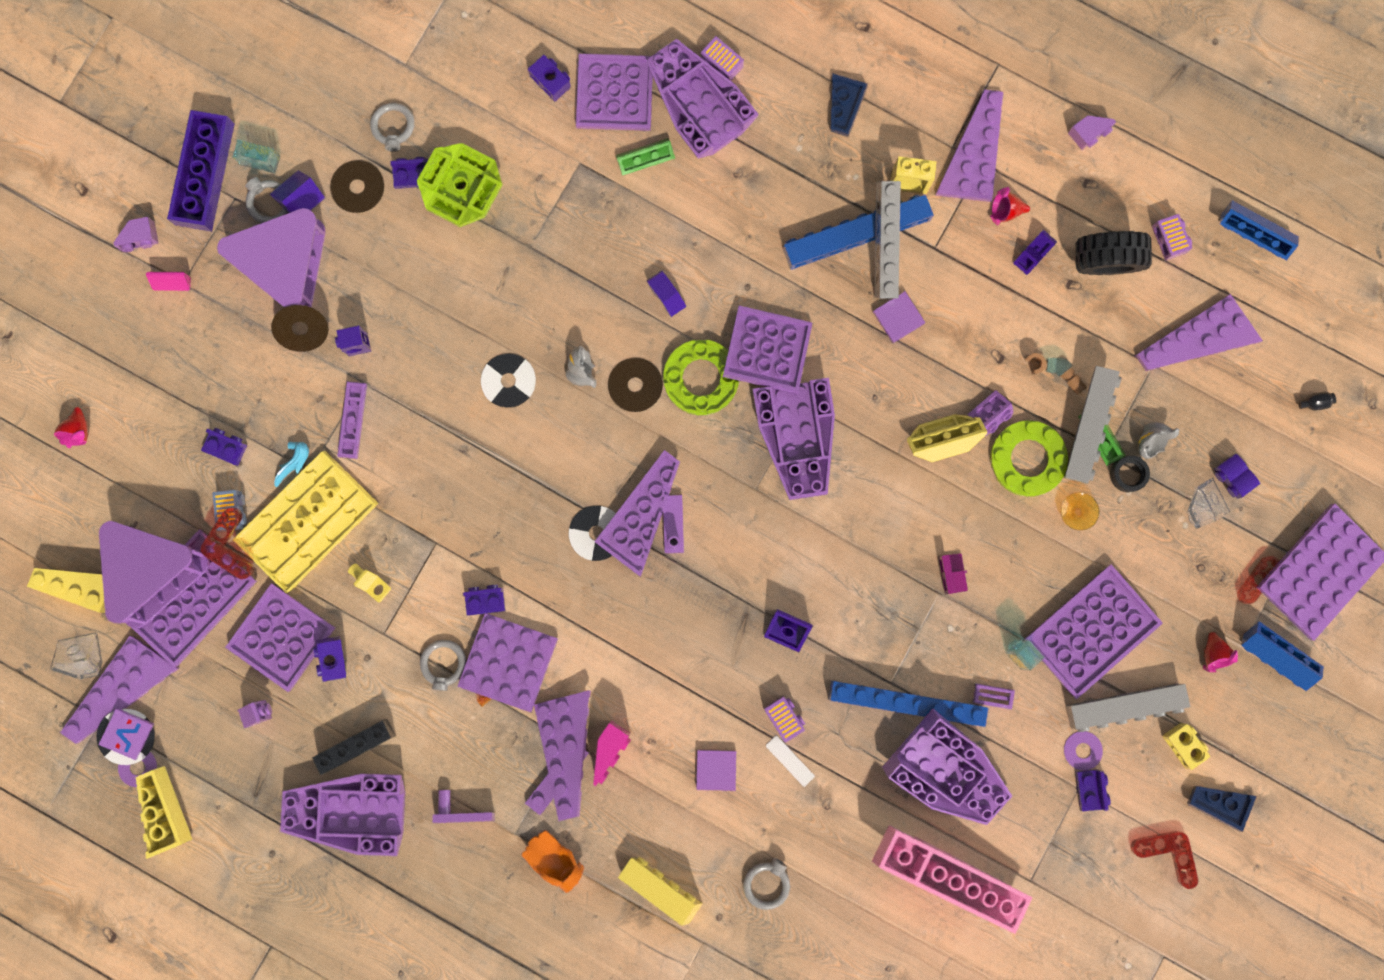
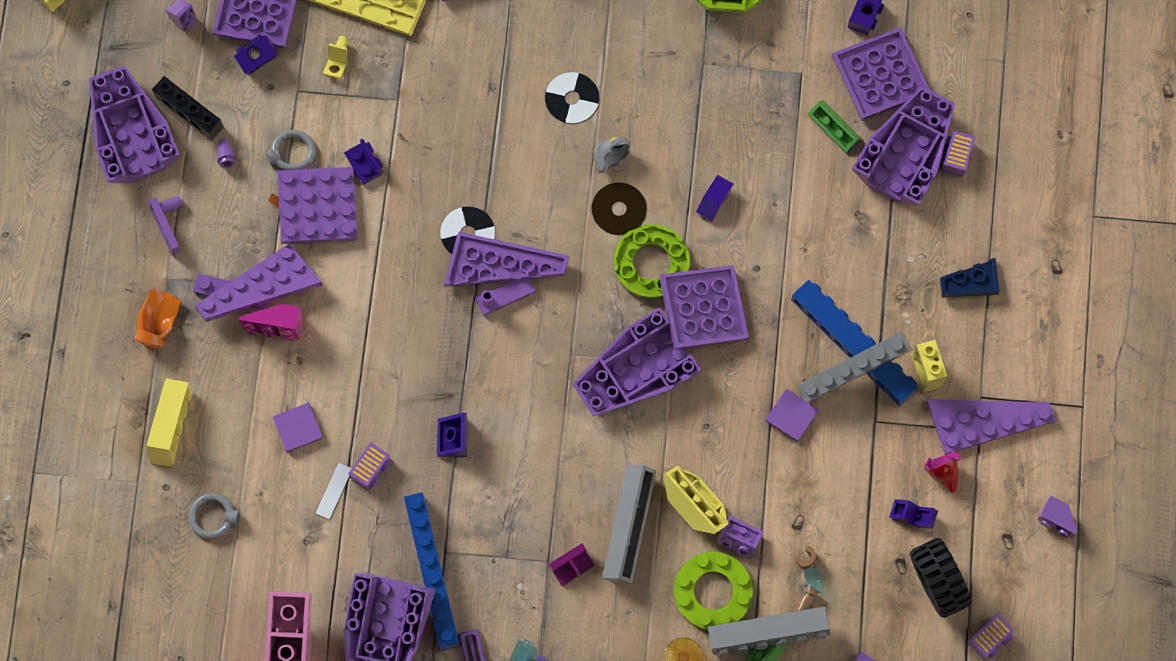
camera: 70 degrees right, 10 degrees down
(418, 729) = (225, 154): none -> medium lavender cone
(941, 506) = (629, 524): none -> light grey brick

